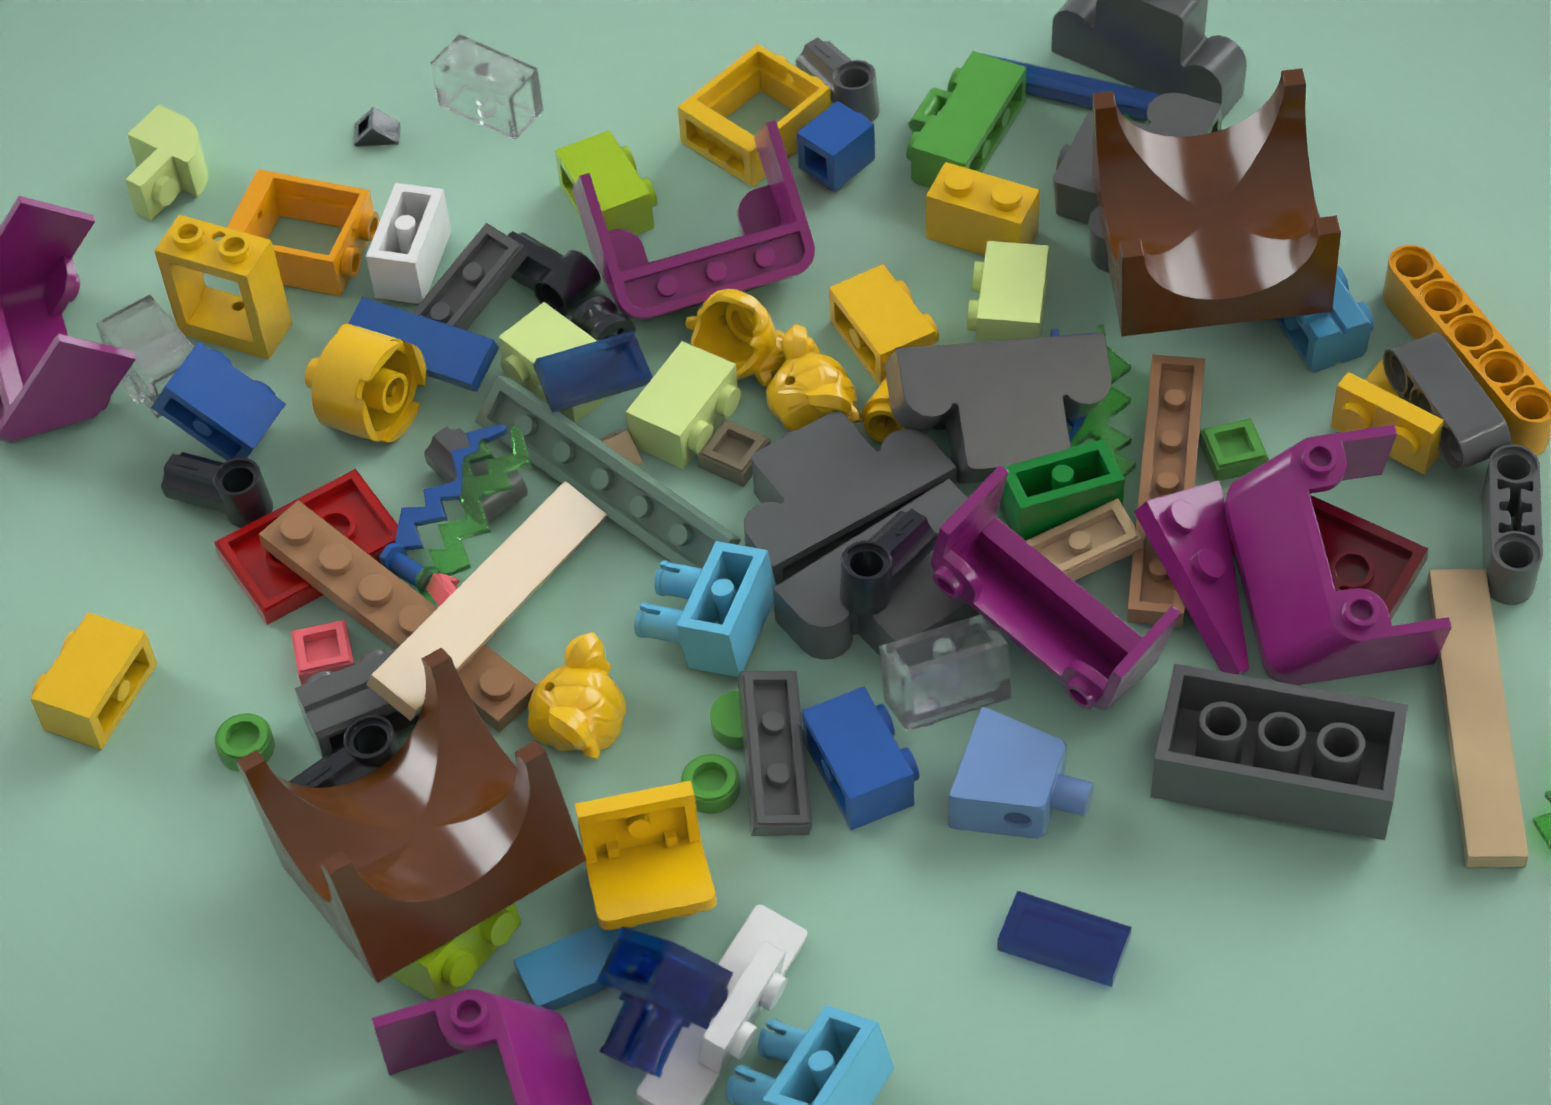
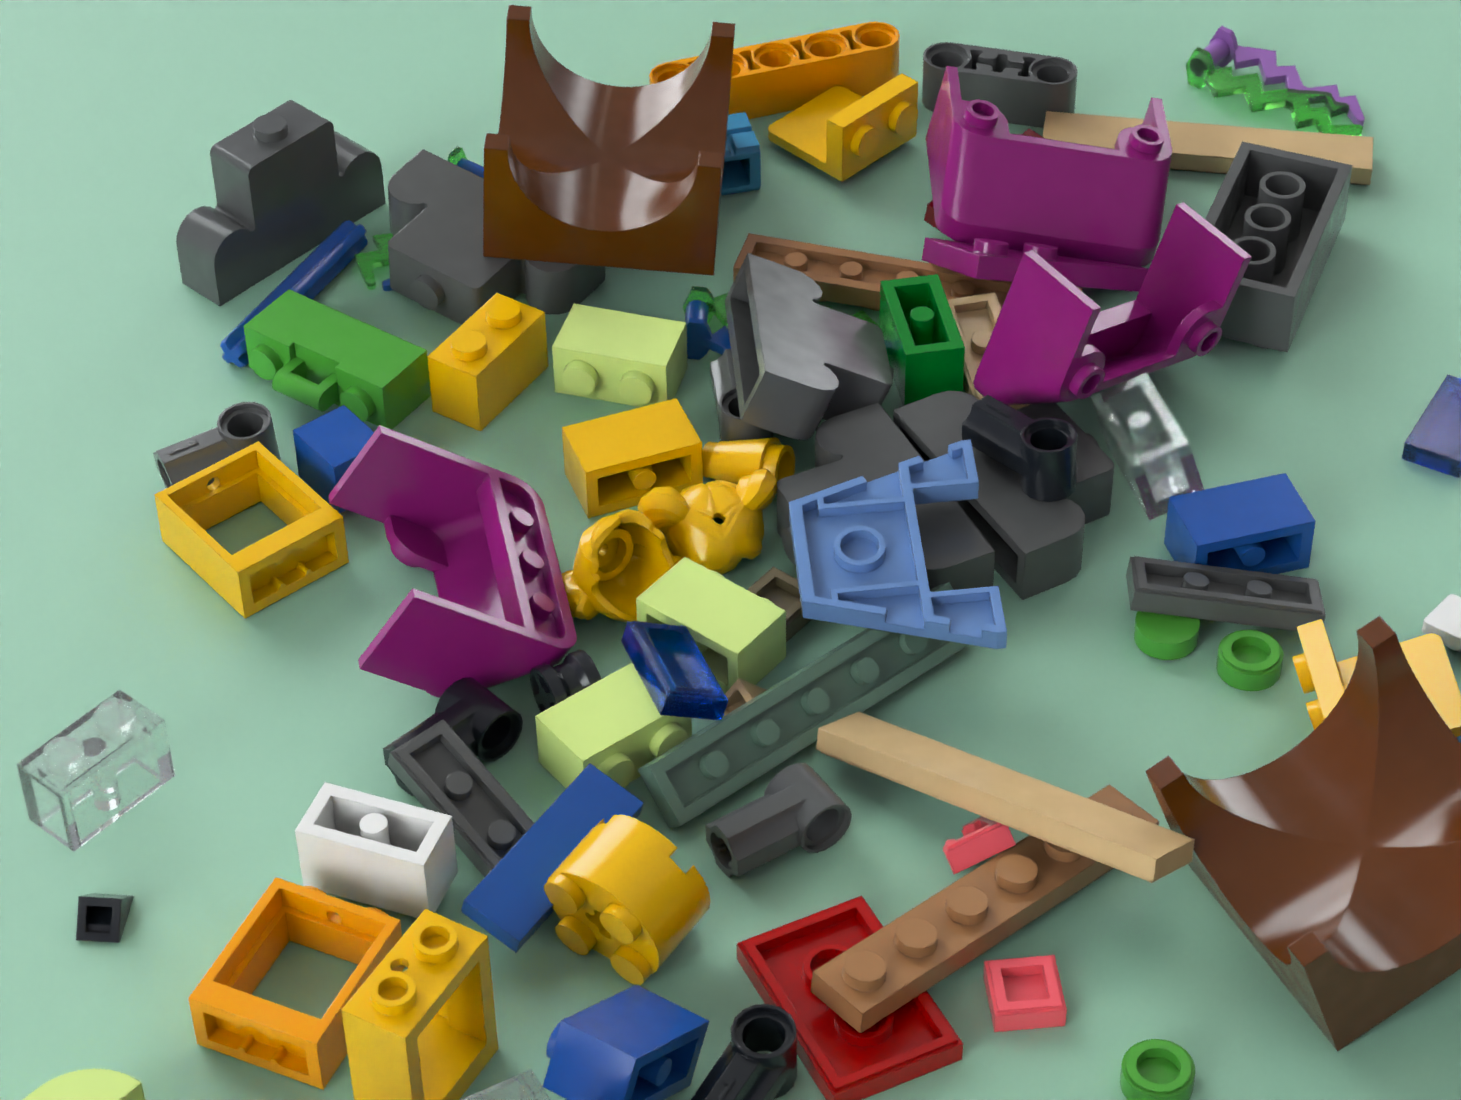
camera: 85 degrees left, 10 degrees down
(338, 698) = (1126, 943): dark grey brick -> none
(366, 747) = (1225, 953): black piece -> none
(470, 492) = (834, 799): piece -> none
(578, 701) = (1120, 731): yellow hair -> none
(622, 194) = (315, 676): lime brick -> none
(722, 611) = (1048, 604): medium azure brick -> none
(734, 469) = (865, 556): none -> medium blue wing
(1013, 780) = (1268, 427): medium blue torso -> none
(1232, 449) = (857, 236): bright green tile -> none
(1438, 381) = (824, 85): dark grey beam -> none

